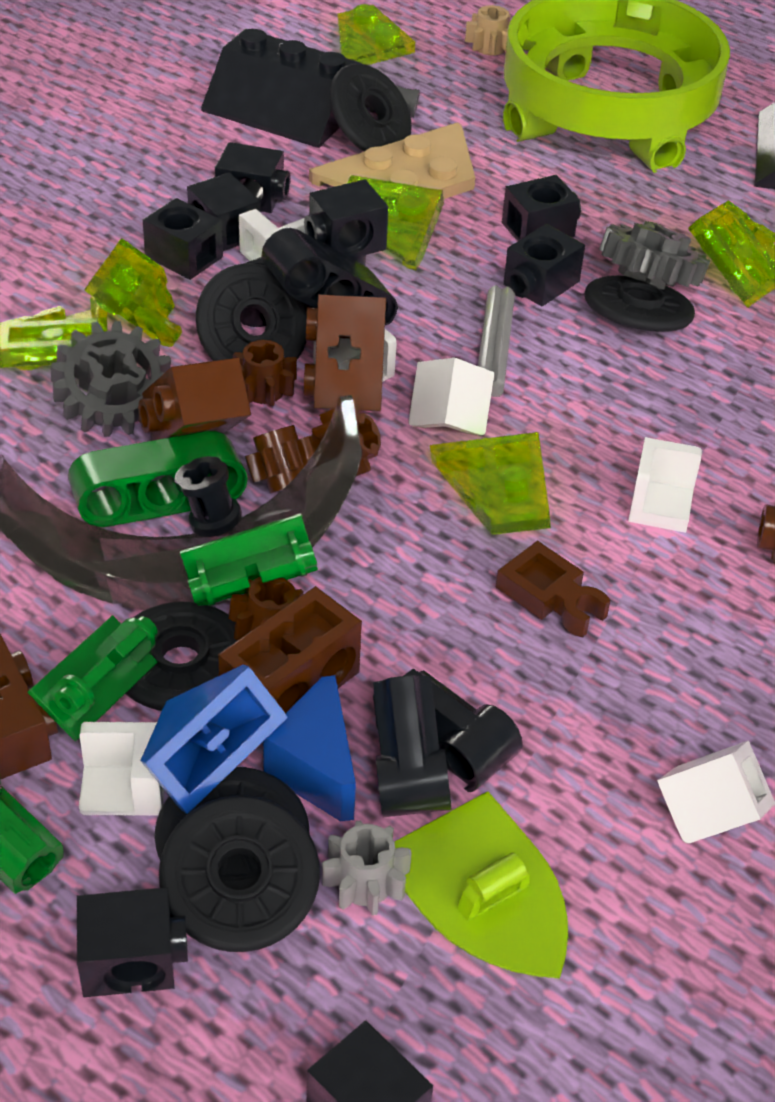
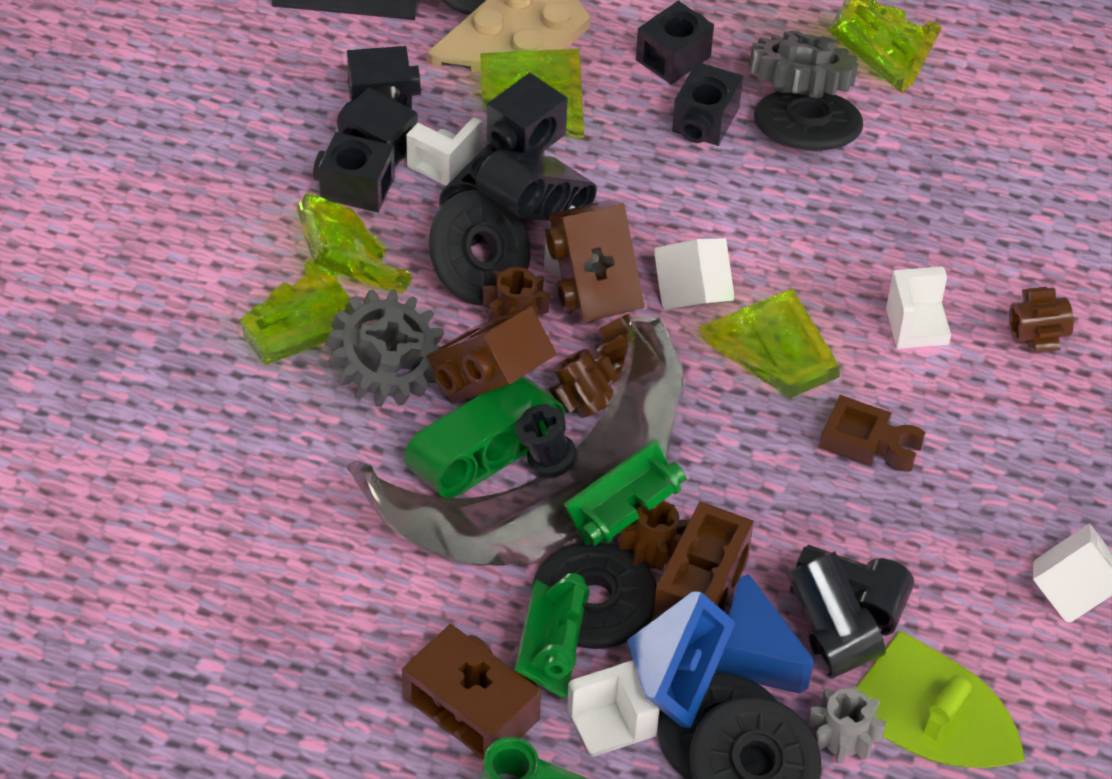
camera: 20 degrees left, 5 degrees up
(496, 335) = (696, 191): light grey axle -> none

